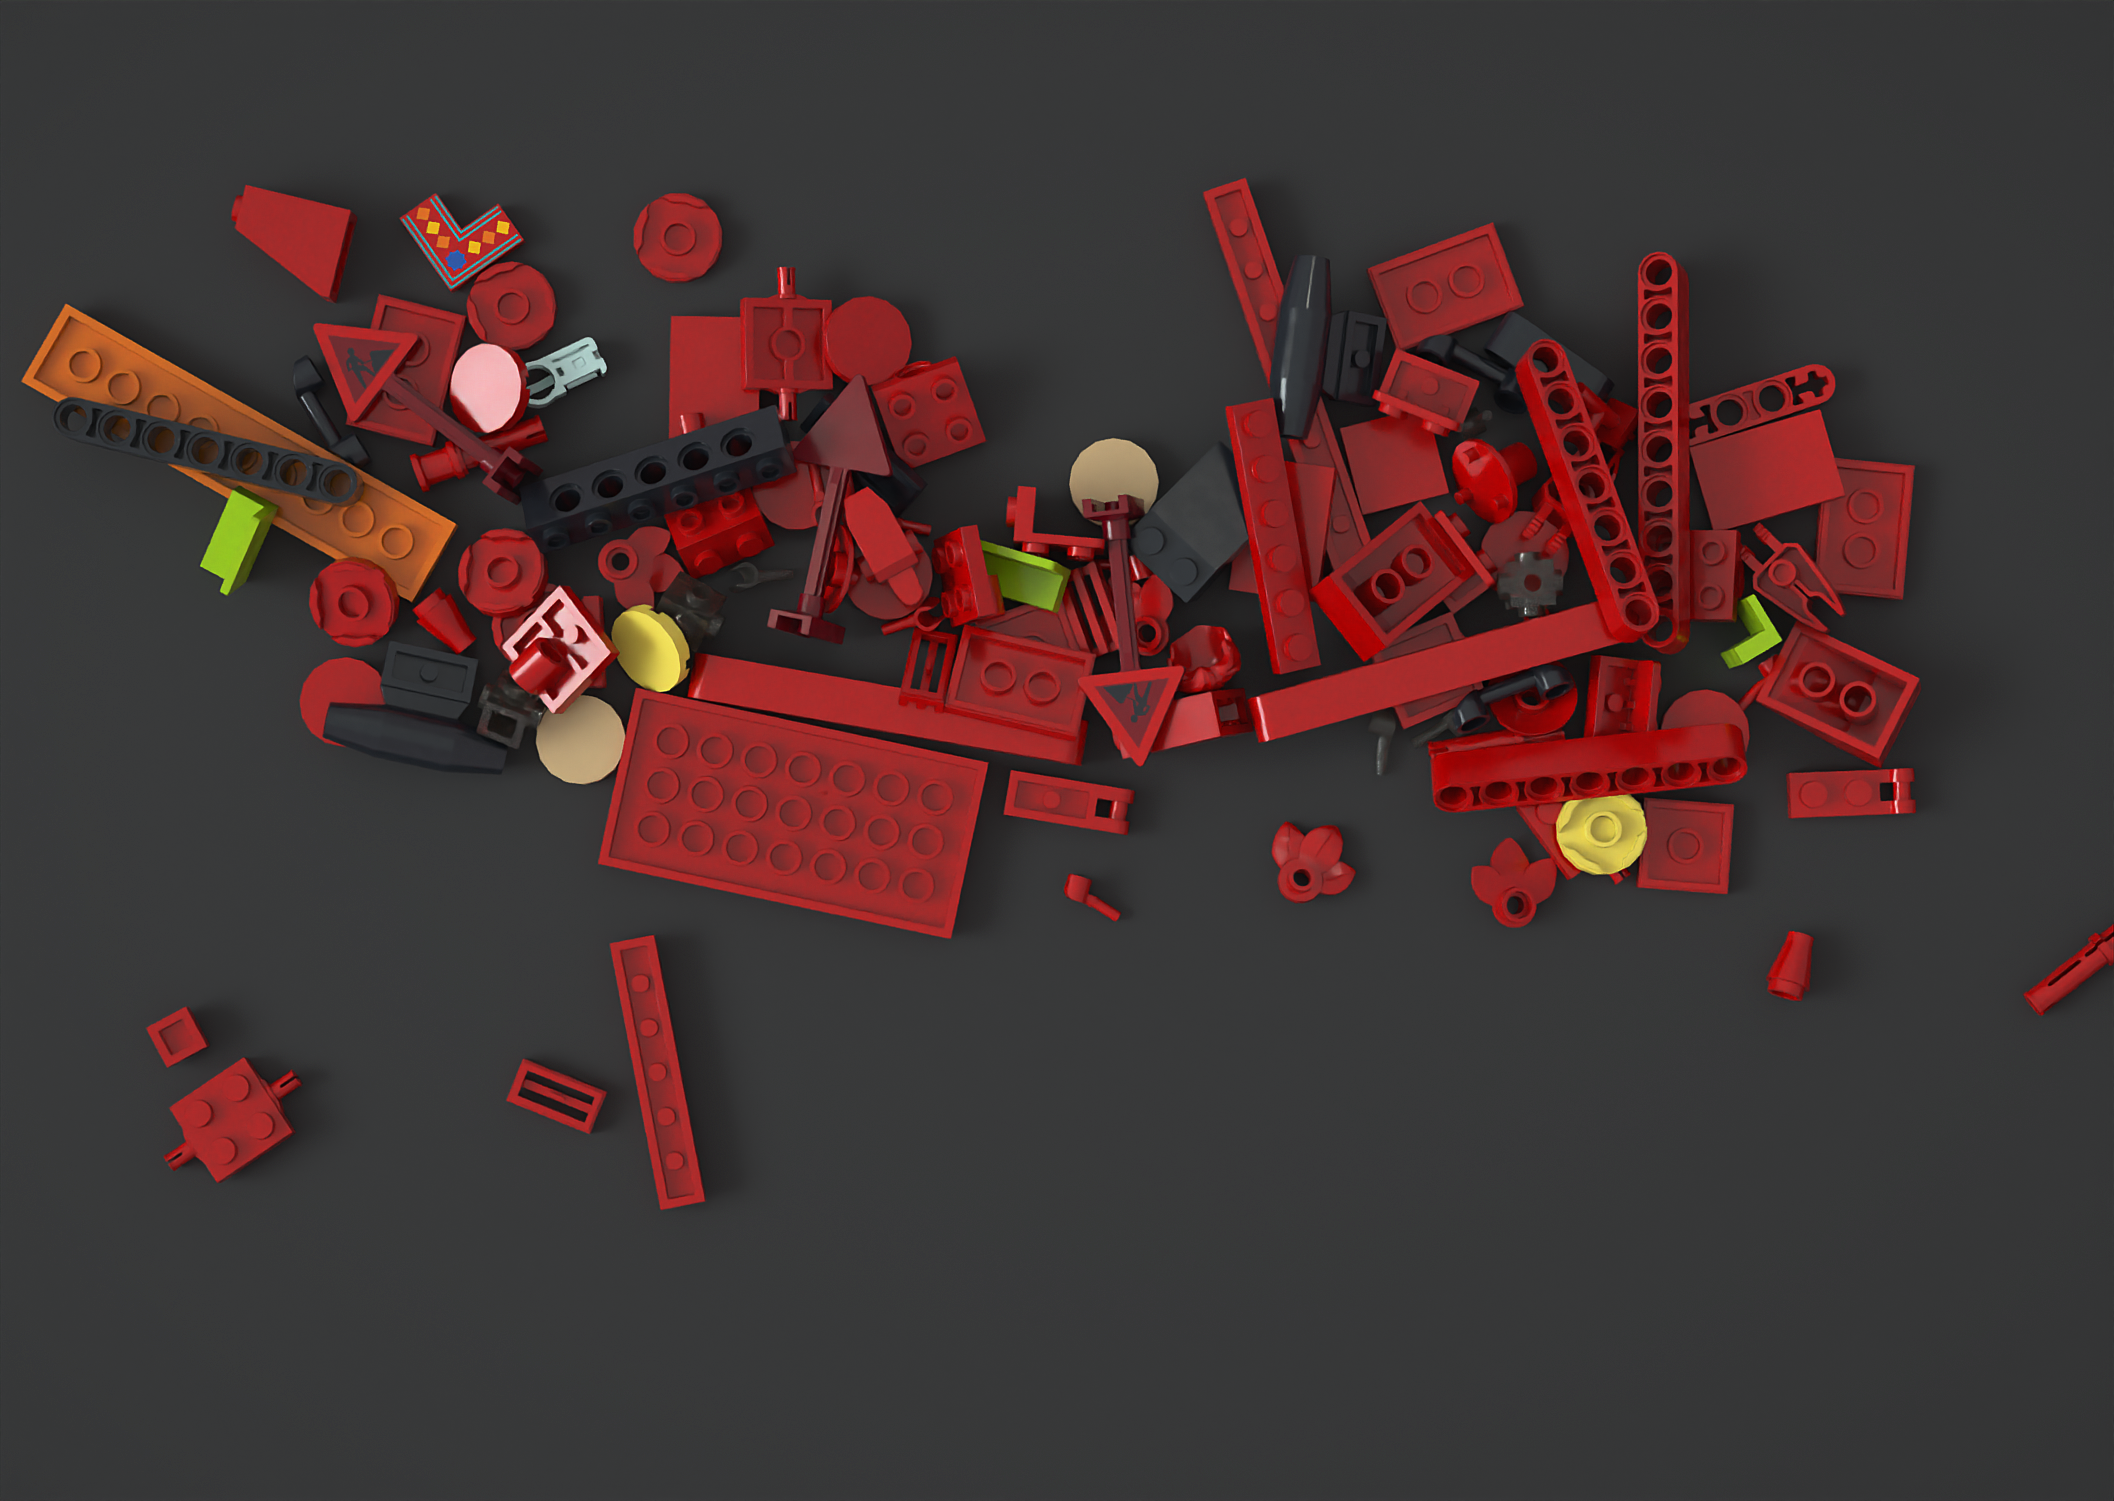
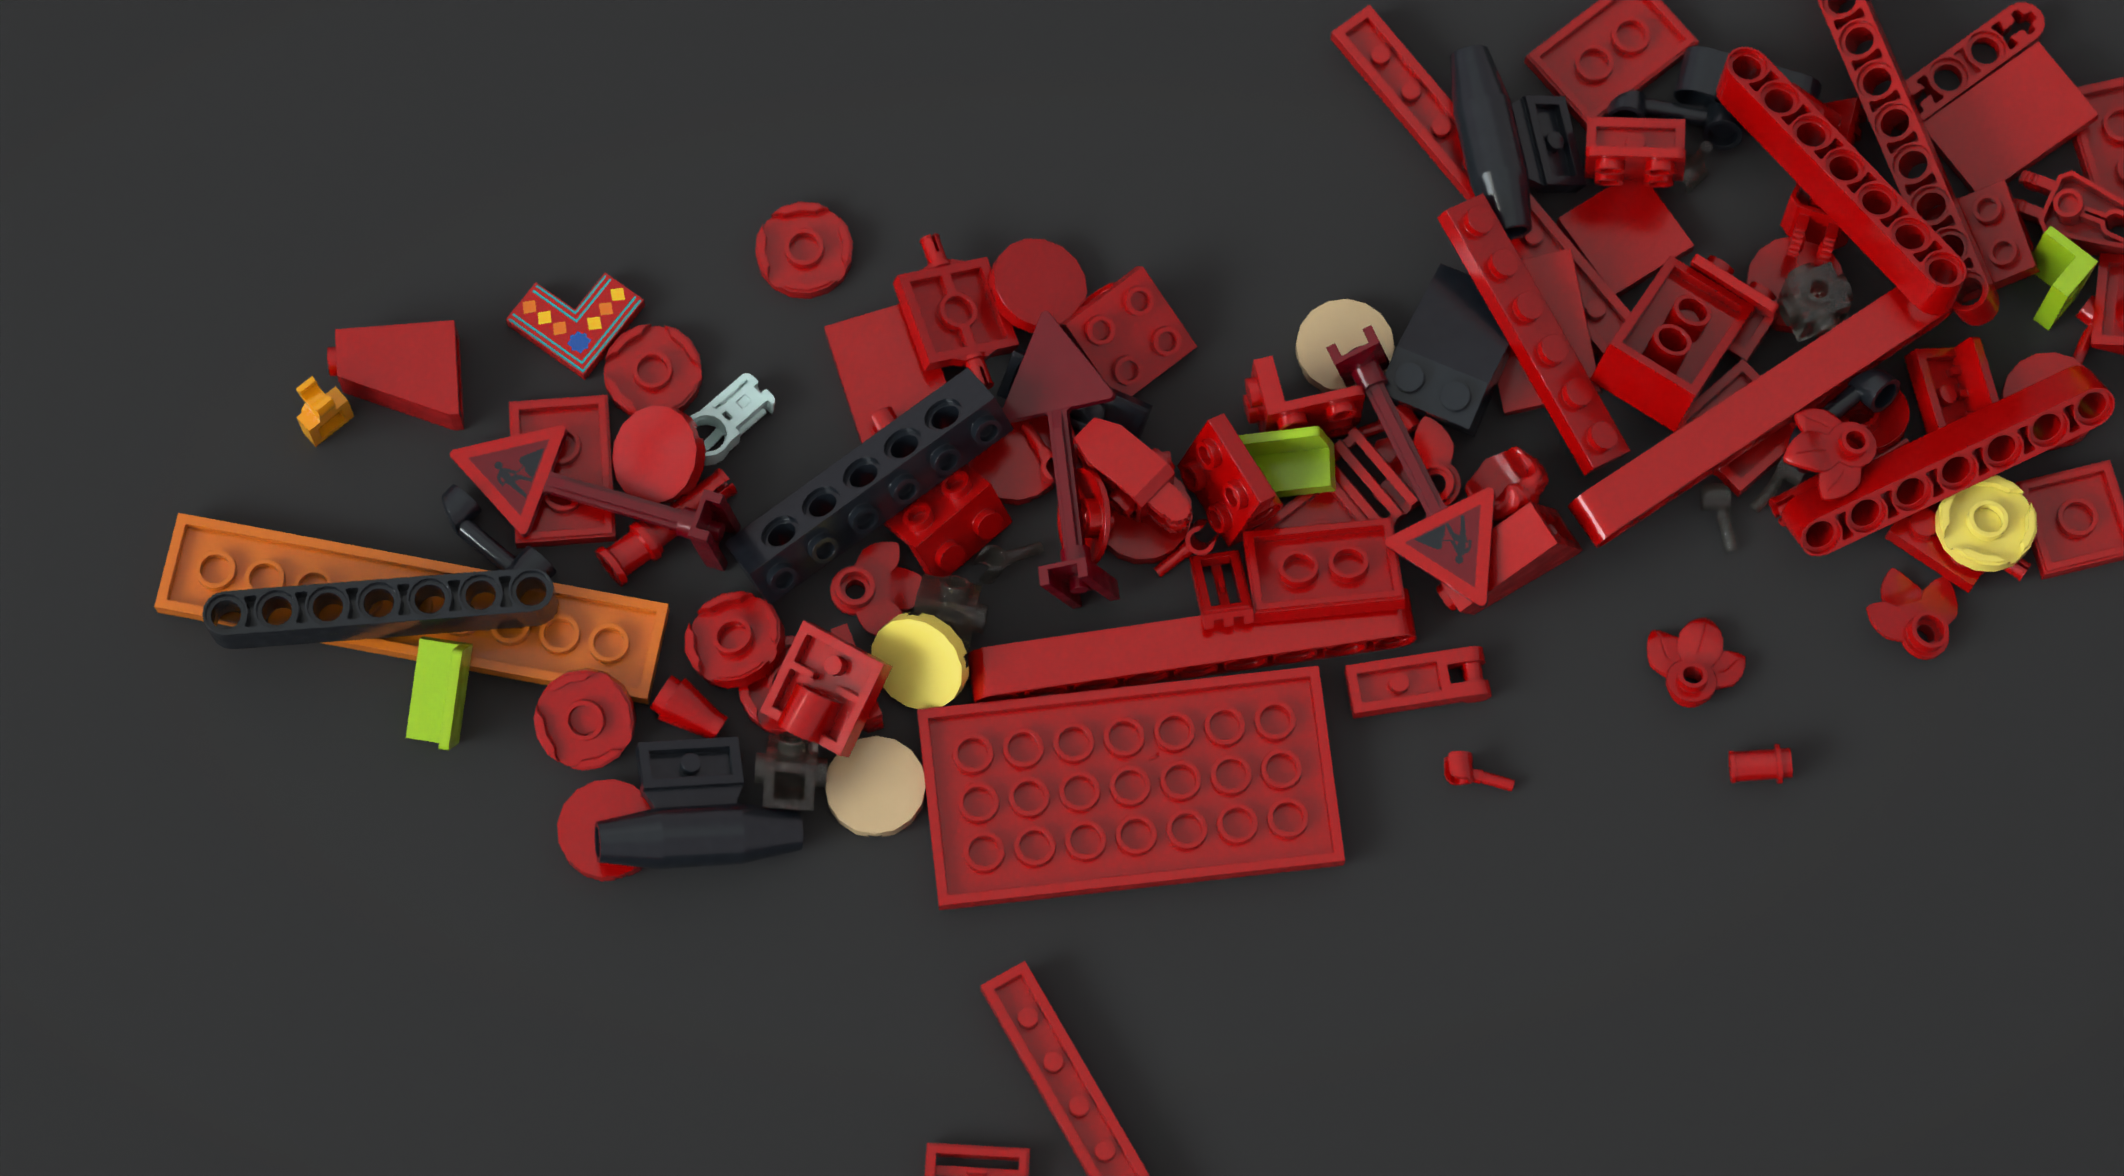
camera: 15 degrees left, 15 degrees down
(215, 252) = (322, 412): none -> light orange plate
(1332, 971) = (1760, 764): none -> red pin
(1483, 728) = (1825, 451): none -> red plate
(1490, 477) = (1731, 213): red piece -> none

